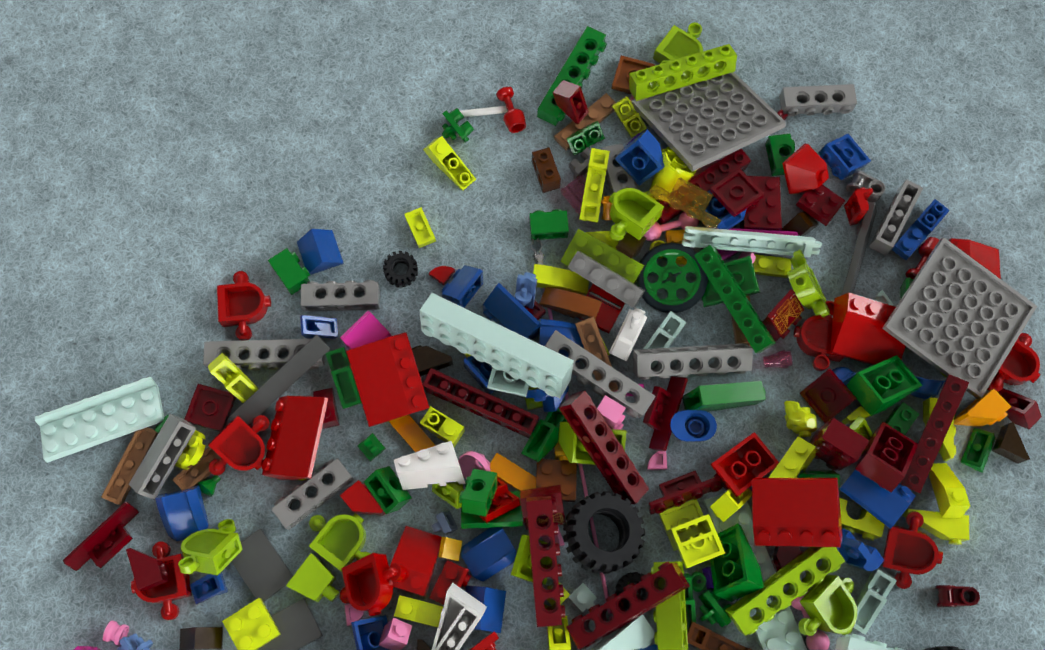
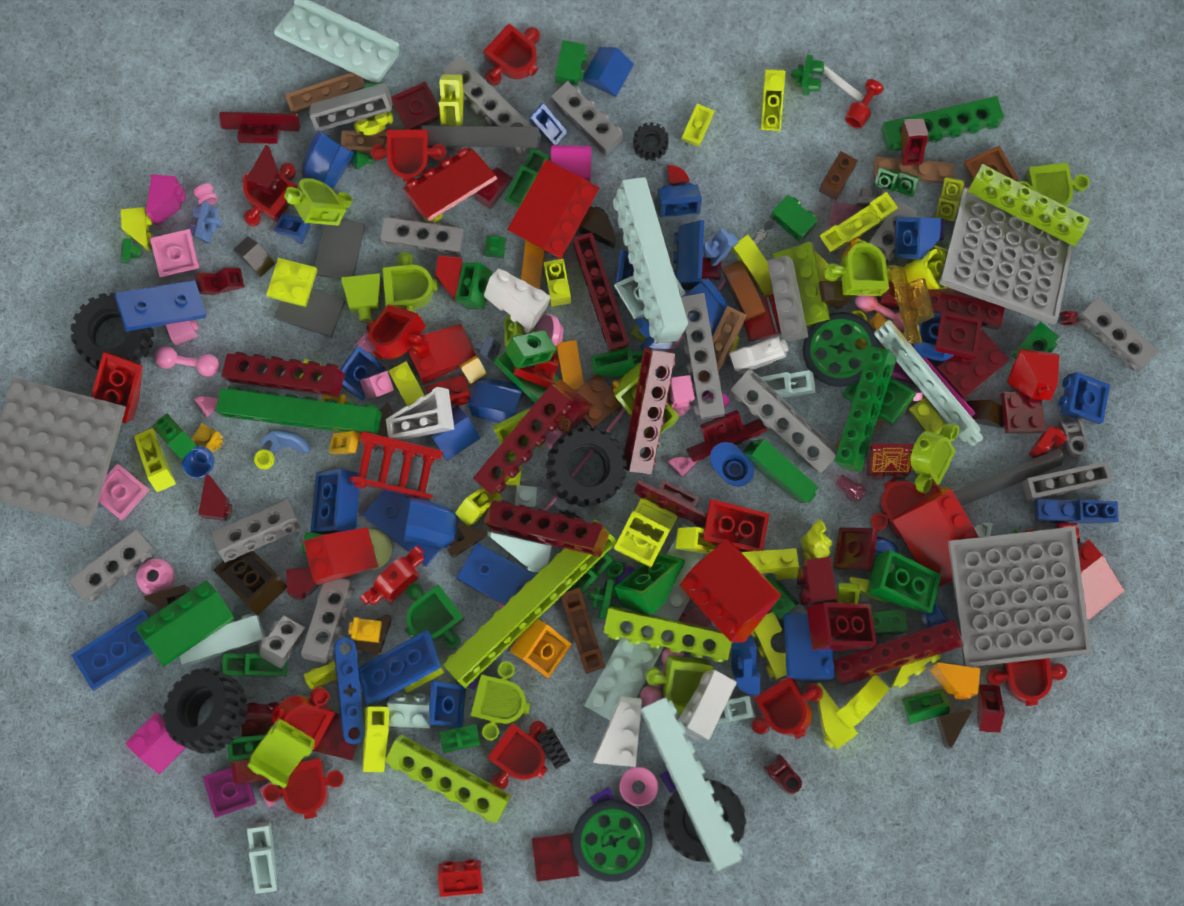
camera: 50 degrees right, 5 degrees up
(866, 607) = (707, 705): none -> white wedge

